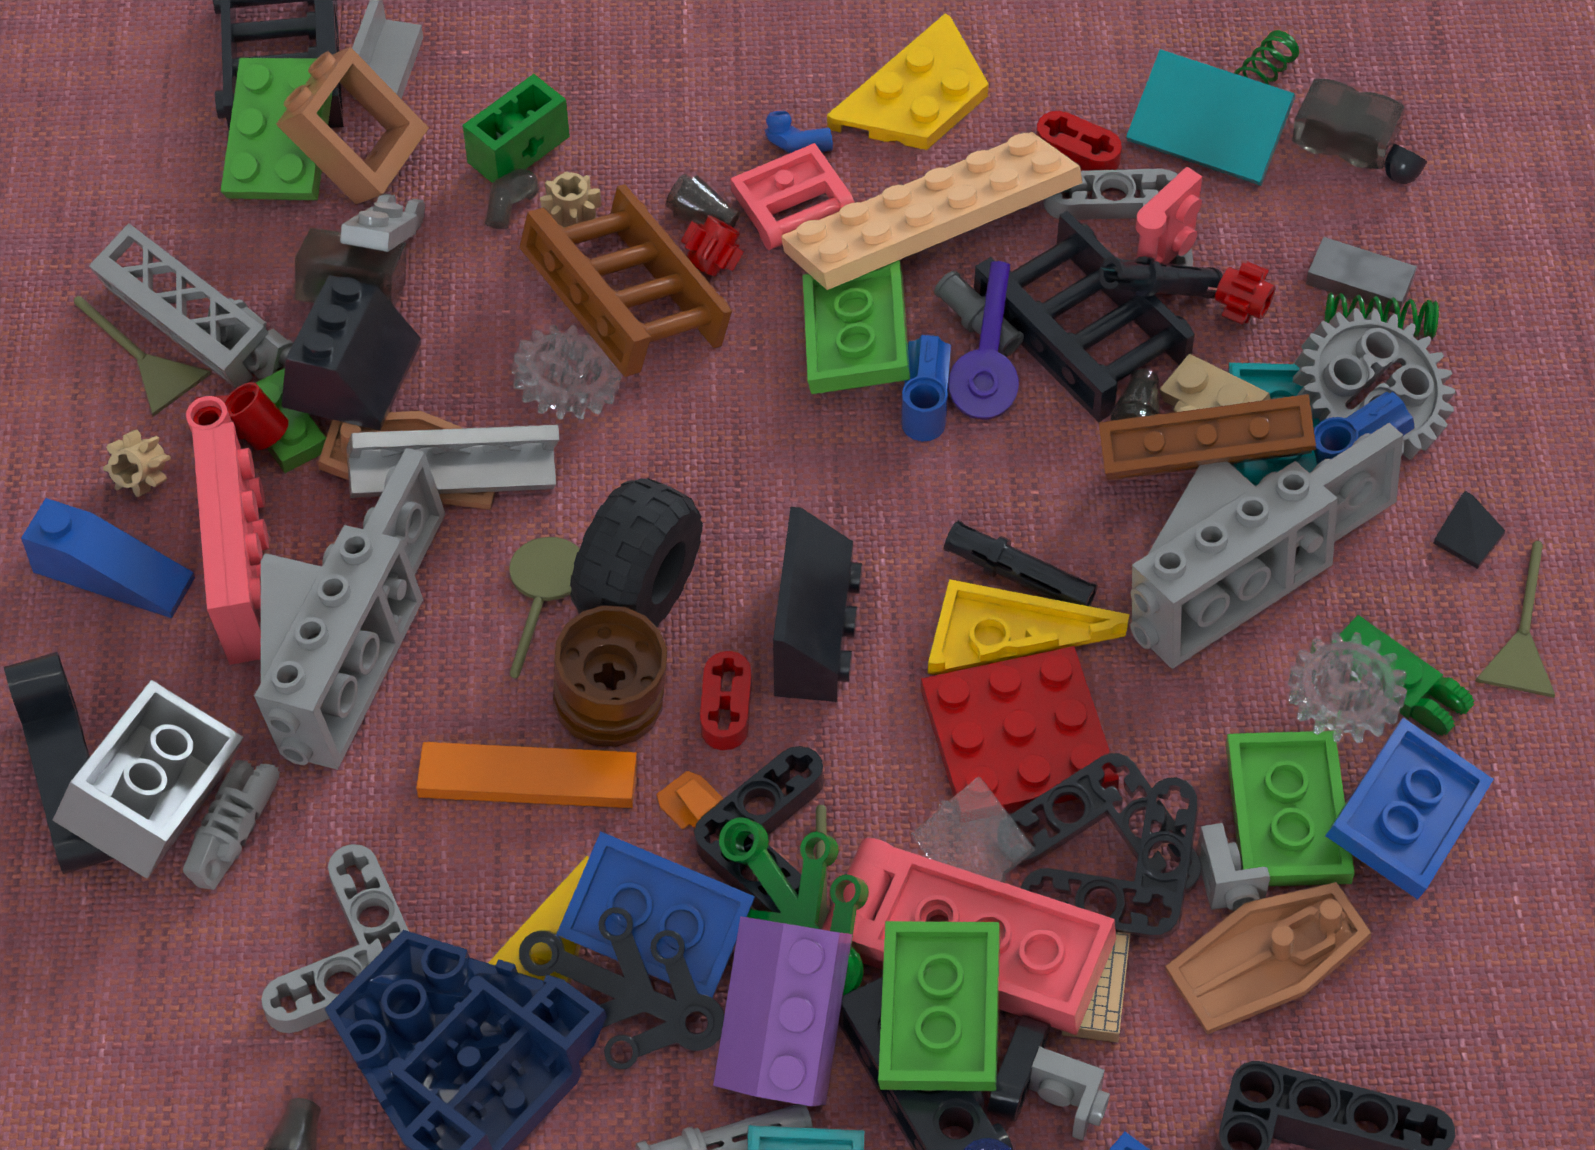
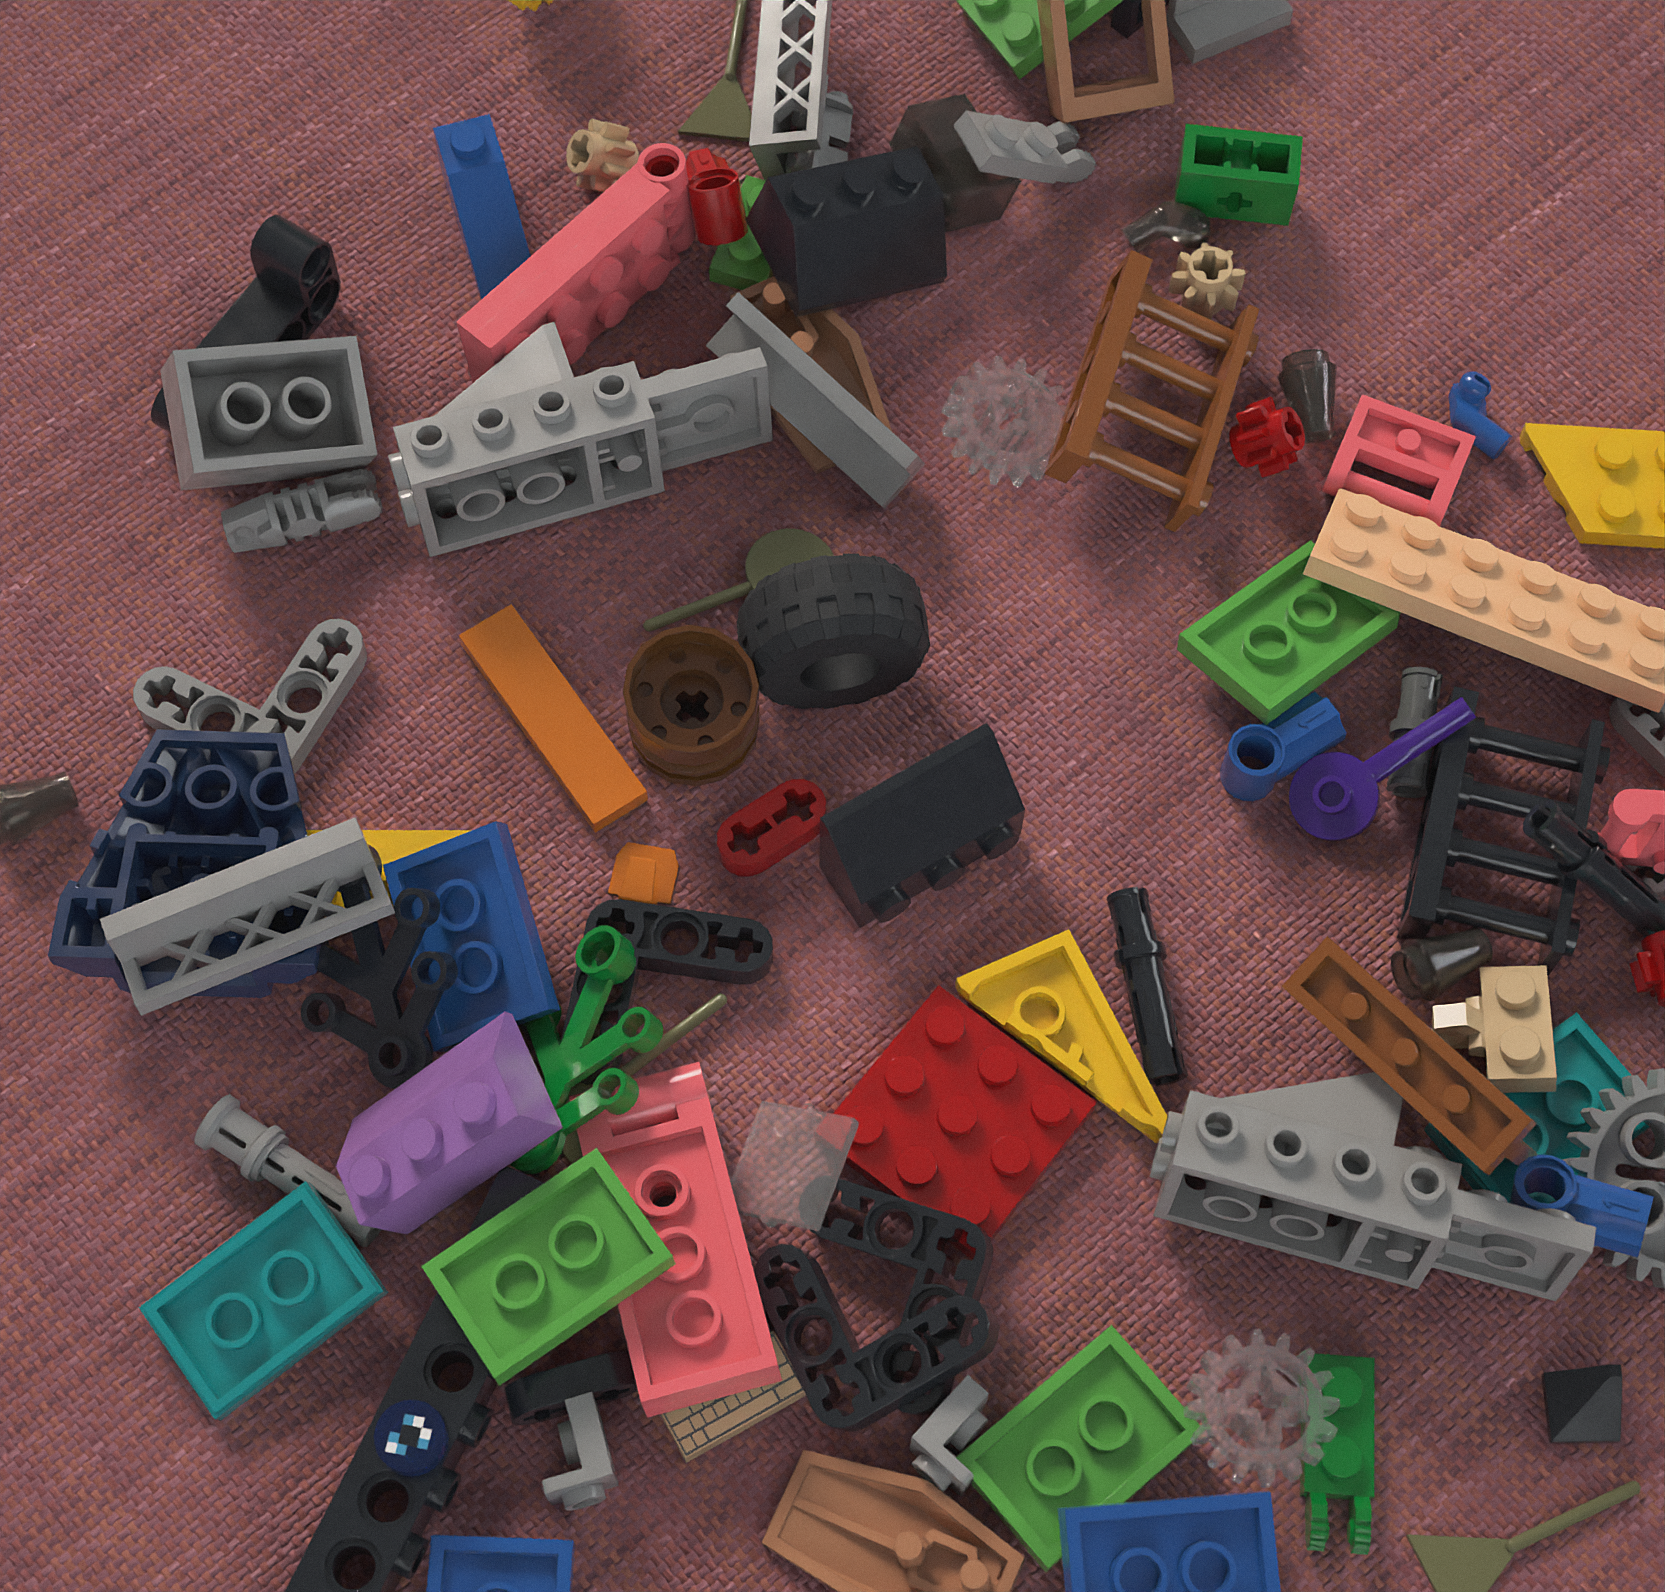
camera: 50 degrees right, 10 degrees up
(518, 1018) = (243, 895): none -> light grey fence

